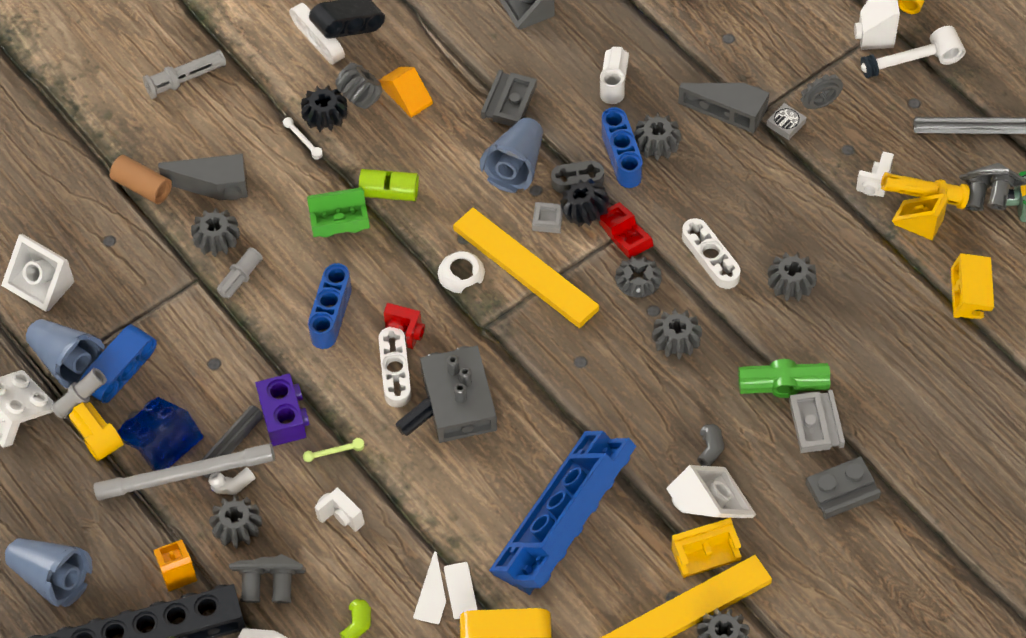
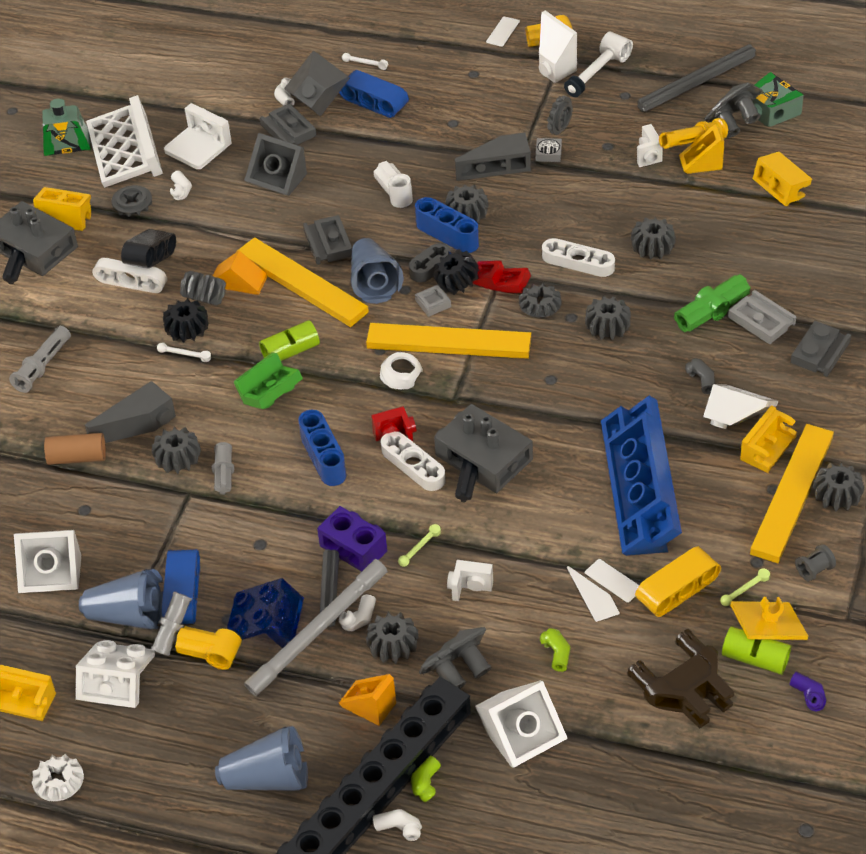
camera: 35 degrees left, 10 degrees down
(454, 129) = (305, 283): none -> yellow tile

